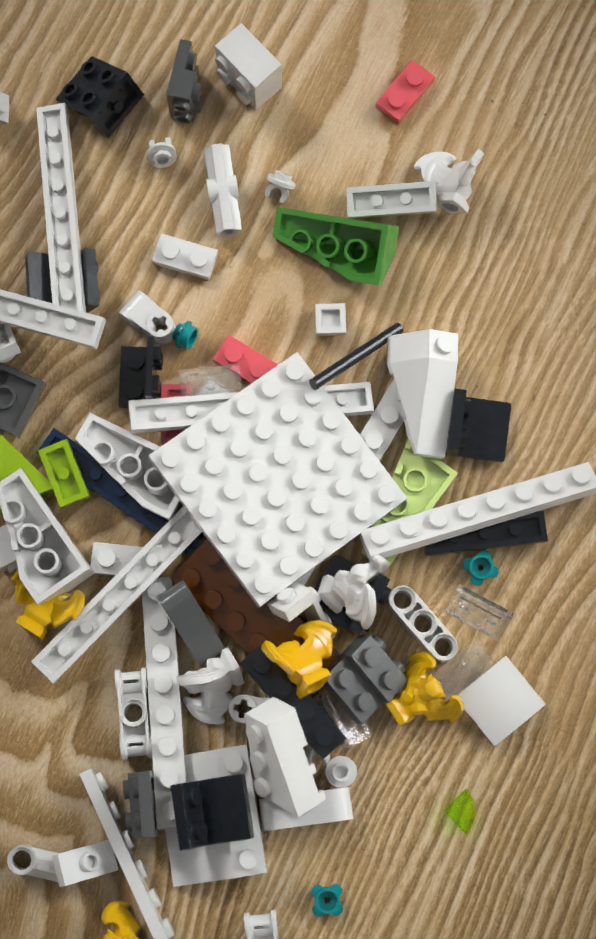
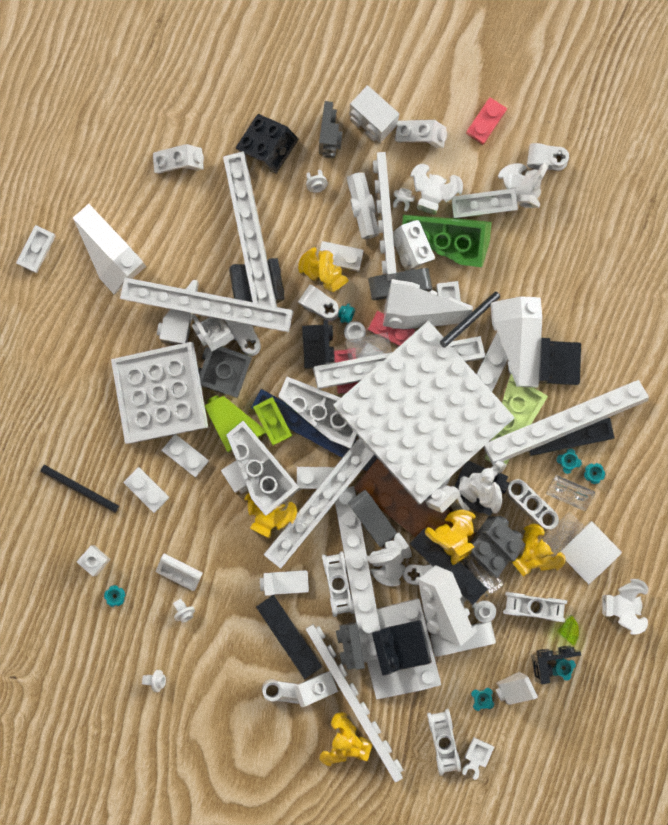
camera: 10 degrees left, 5 degrees up
(38, 350) = (243, 334): none -> white piece
(56, 784) = (289, 636): none -> black plate
(57, 705) = (284, 582): none -> white bracket
(155, 267) = (322, 268): none -> yellow animal
(194, 358) = (354, 330): none -> white plate
(250, 216) = (385, 224): none -> white plate
(264, 300) = (380, 286): none -> dark grey beam
(276, 331) = (412, 307): none -> white wedge
(285, 249) = (412, 245): none -> white bracket
(314, 95) = (421, 131): none -> white bracket
(321, 175) = (434, 189): none -> white animal
(374, 889) = (515, 689): none -> white slope
(417, 863) = (542, 669): none -> black bracket
(432, 771) = (550, 608): none -> white piece
(456, 861) = (569, 666): none -> teal plate
(487, 140) = (542, 153): none -> white piece
(515, 580) = (598, 468): none -> teal plate
(546, 782) = (627, 605): none -> white animal

